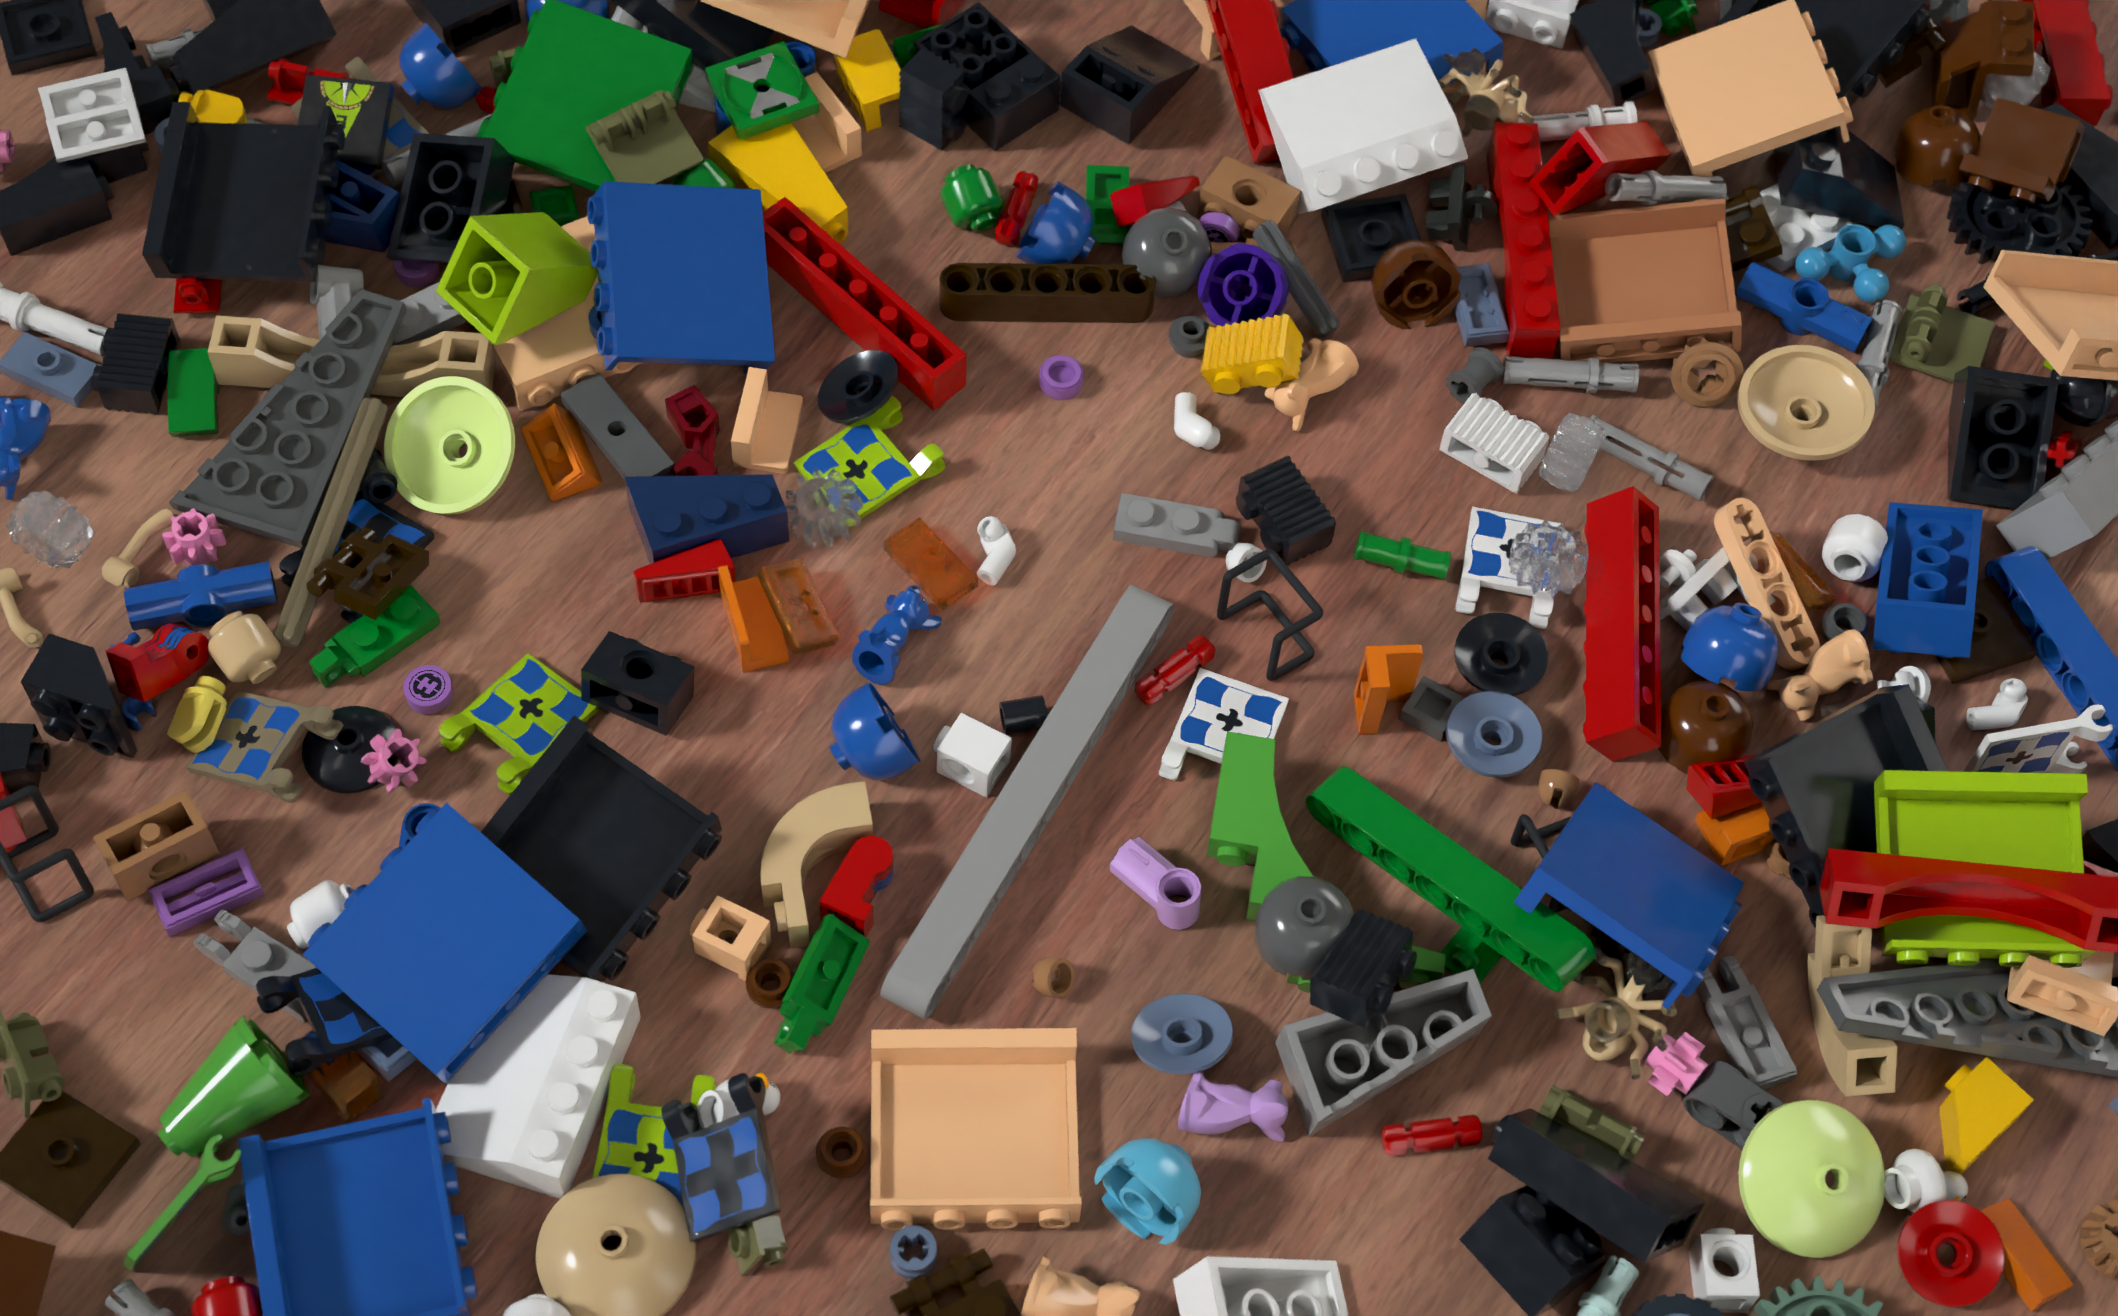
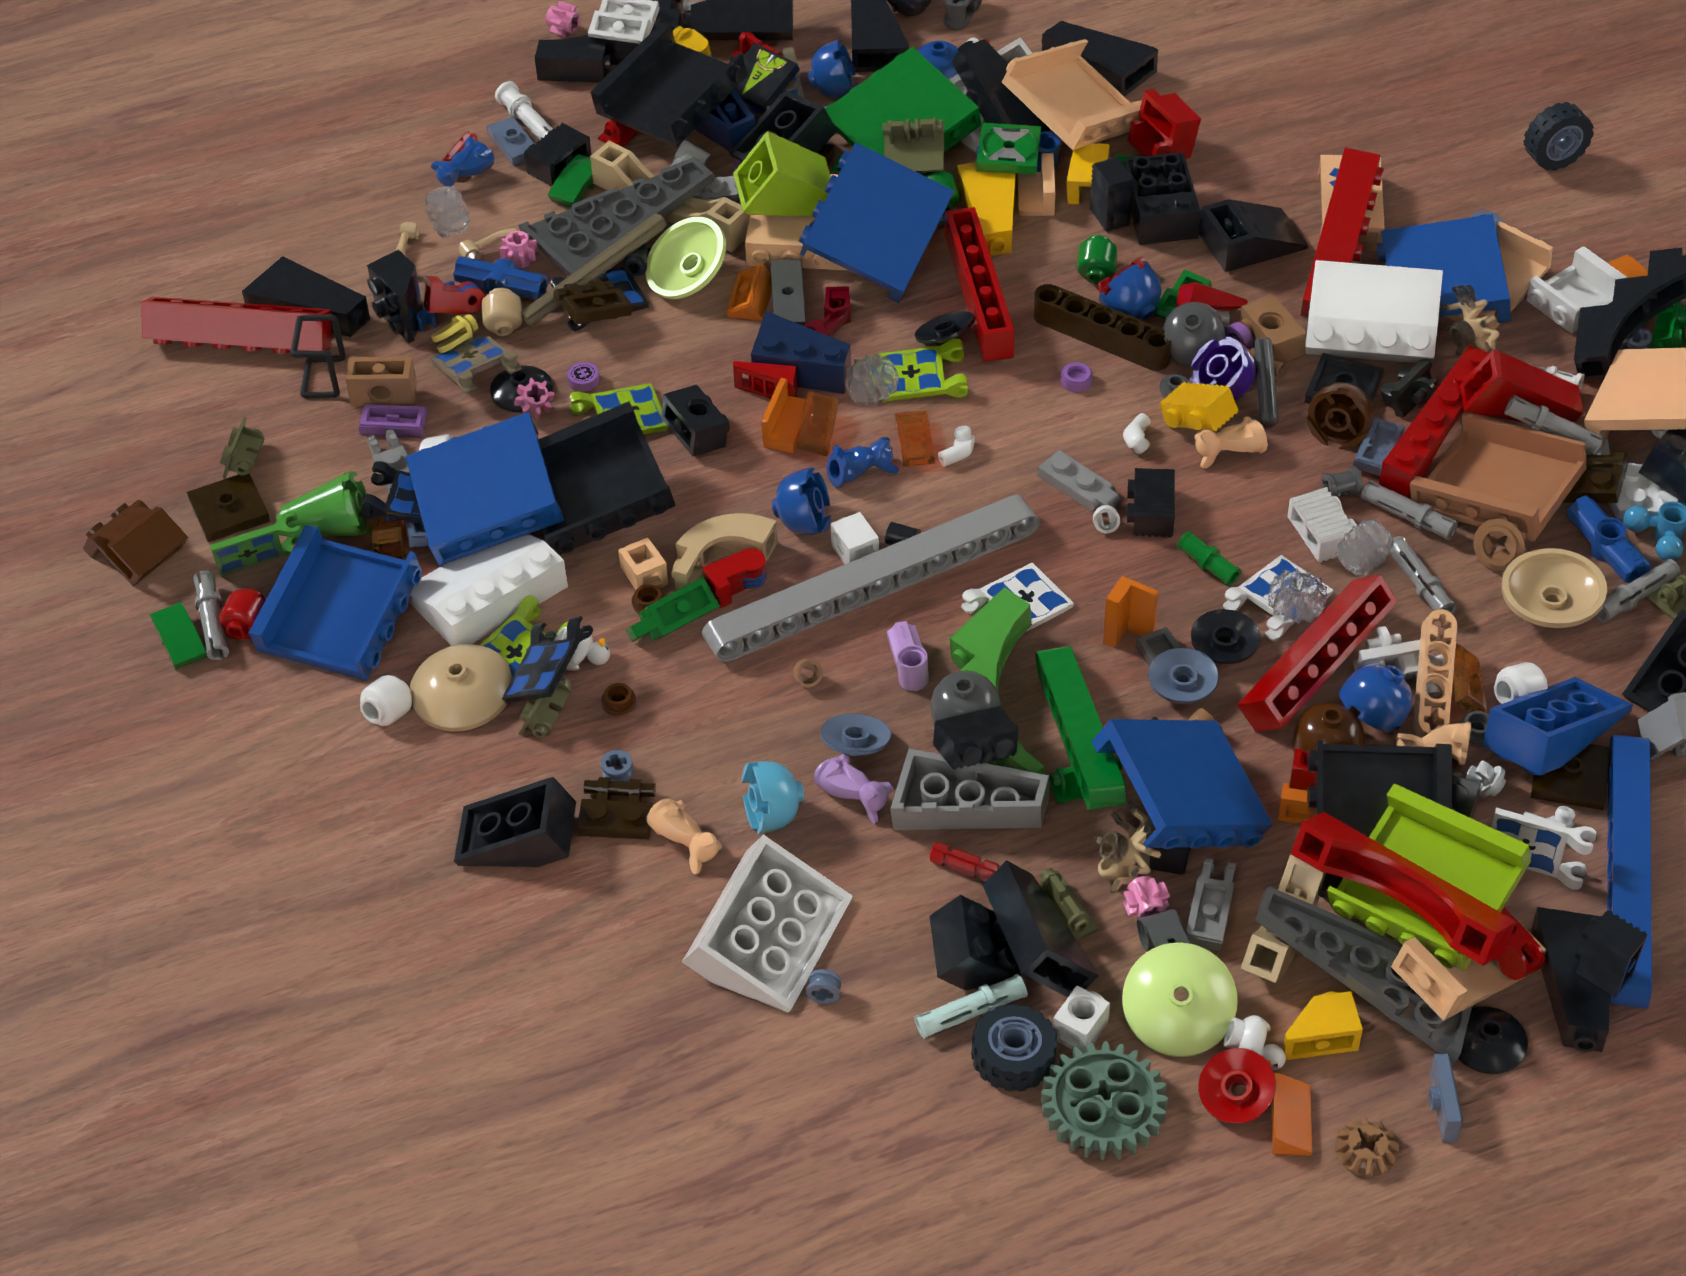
camera: 40 degrees right, 10 degrees down
(373, 642) = (575, 339): green hinge -> none
(765, 426) = (875, 325): light nougat panel -> none
(974, 1128) = (702, 723): light nougat panel -> none
(1174, 670) = (1014, 555): red axle -> none
(1291, 629) = (1108, 546): black piece -> none

